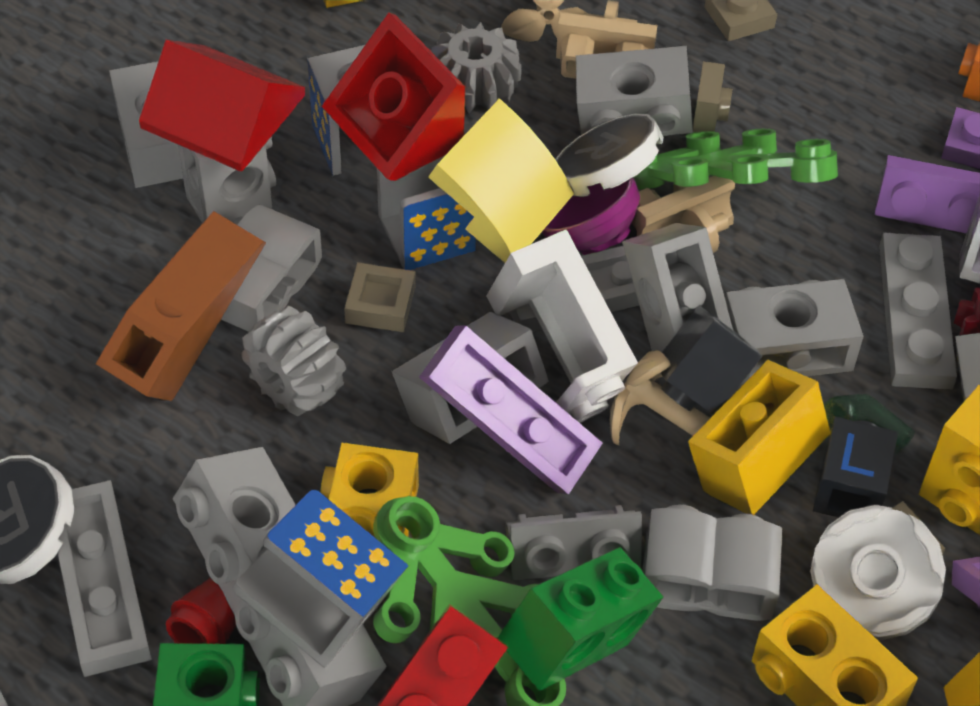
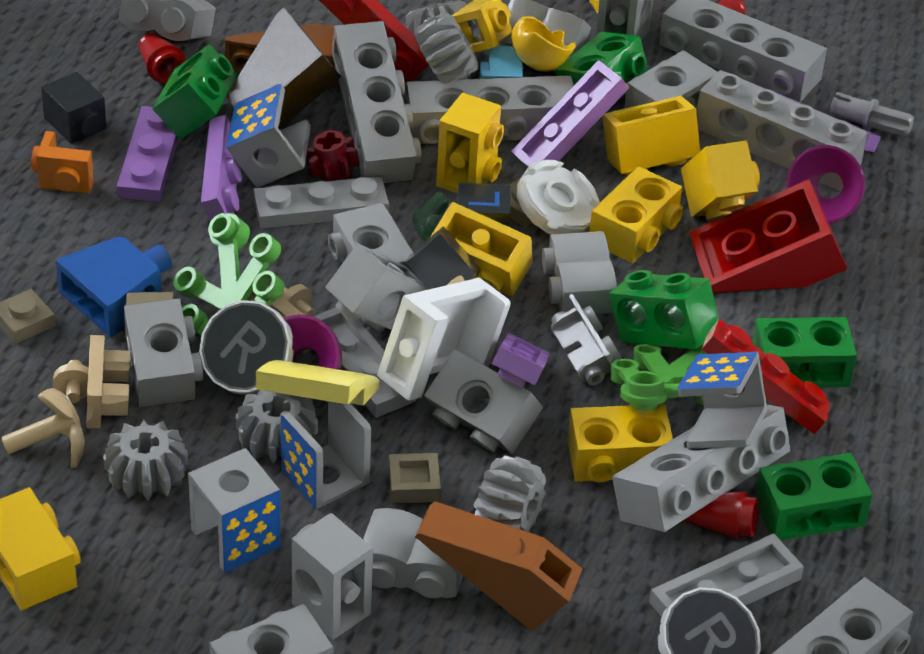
camera: 105 degrees left, 10 degrees down
(216, 103) = (316, 532): red slope -> none
(398, 102) = (283, 423): red slope -> none
(773, 76) = (103, 274): none -> blue torso

